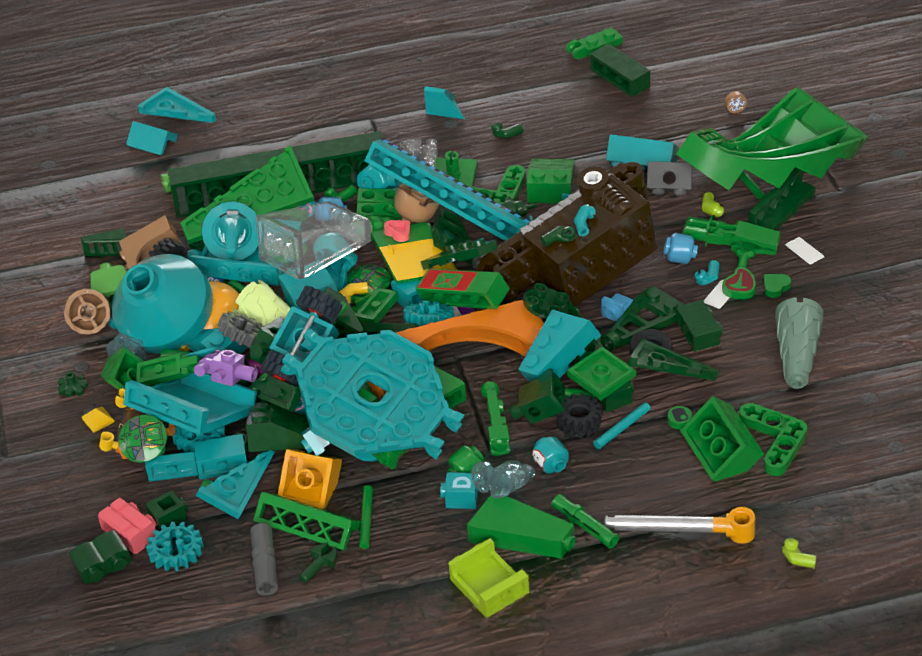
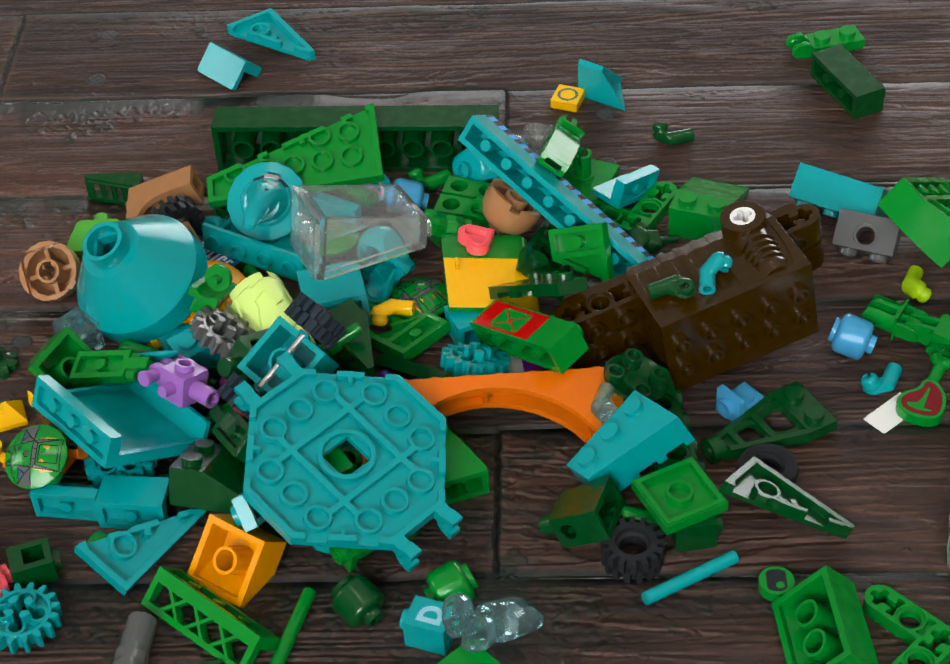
camera: 15 degrees right, 0 degrees up
(223, 299) = (212, 288): none -> green hips
(406, 486) = (358, 601): none -> dark green head
(420, 117) = (567, 98): none -> yellow tile
(437, 153) = (561, 146): none -> arm
(478, 222) = (584, 249): none -> green wing
(488, 176) = (627, 187): none -> teal panel
(498, 429) = (510, 551): green plate -> none
(529, 324) = (602, 405): none -> clear light blue arm
(550, 454) = (572, 598): teal head -> none
(698, 325) = (844, 452): dark green brick -> none

